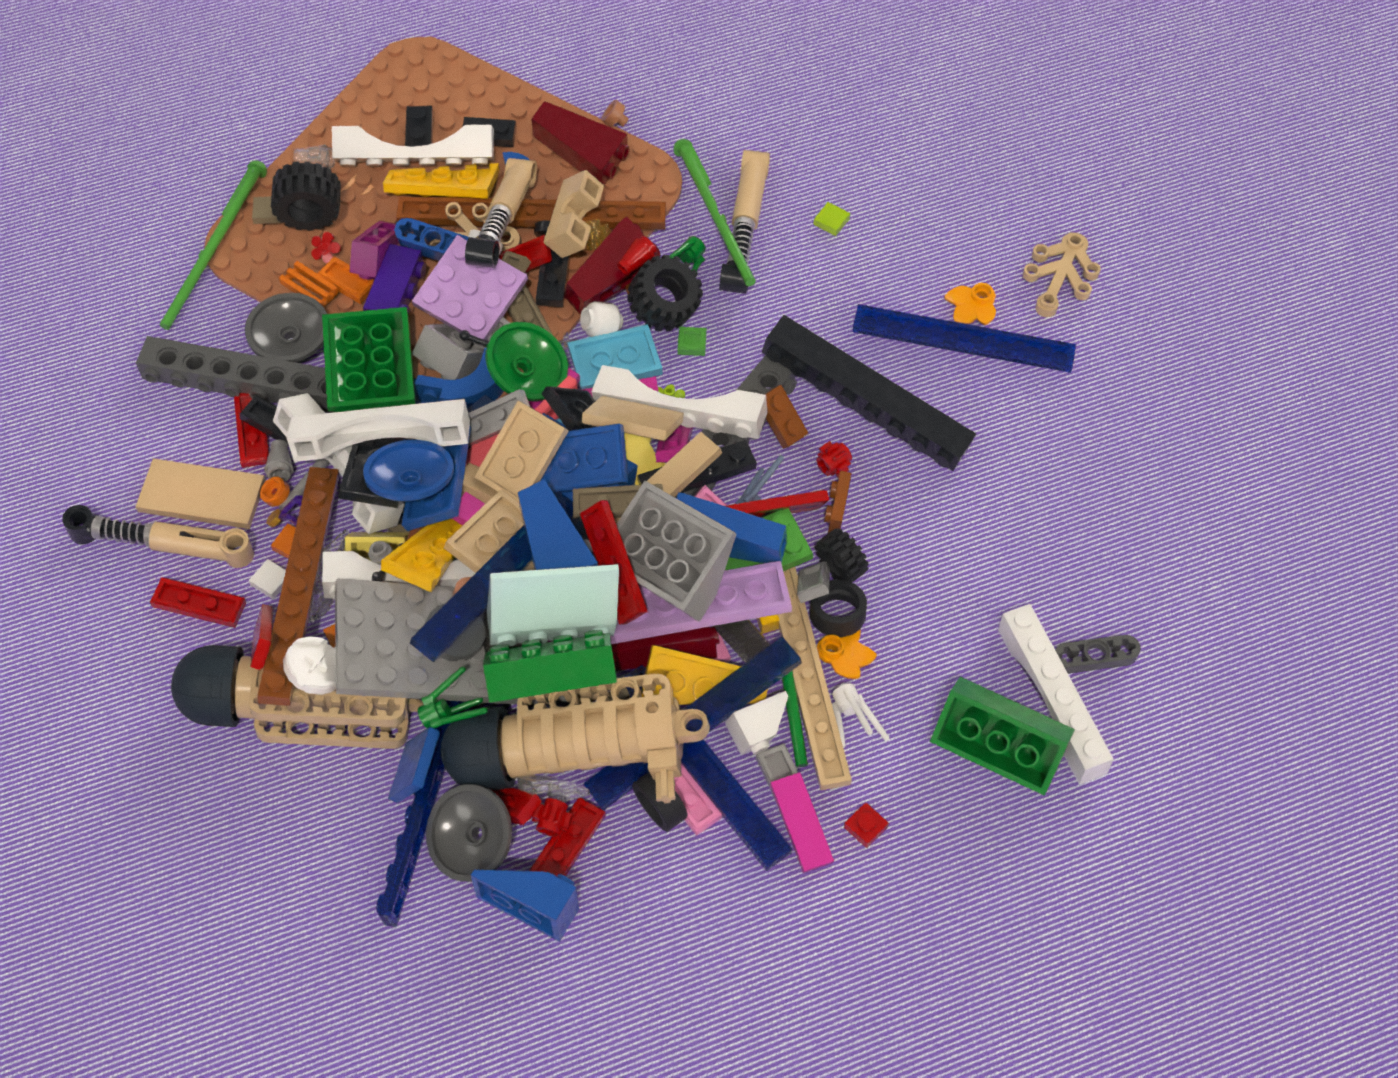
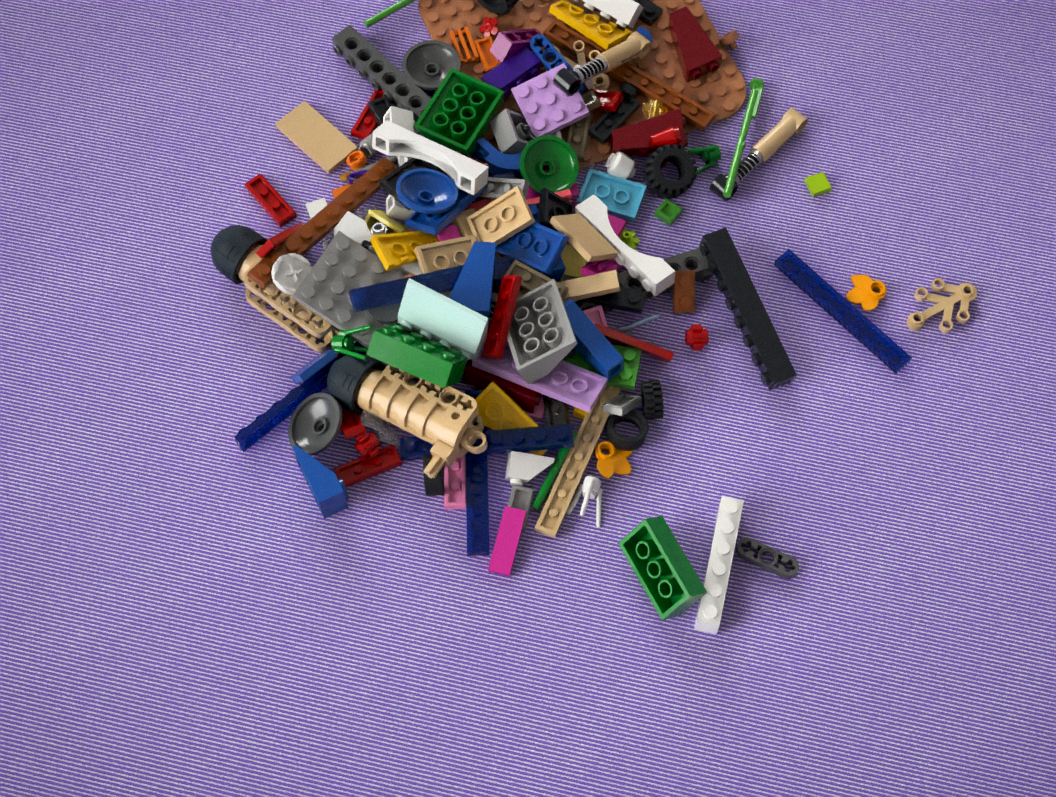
camera: 35 degrees right, 5 degrees up
(161, 536) = (276, 150): piece -> none
(566, 229) = (636, 96): tan arch -> none
(839, 493) = (683, 361): dark orange plate -> none
(866, 825) = (545, 567): red plate -> none

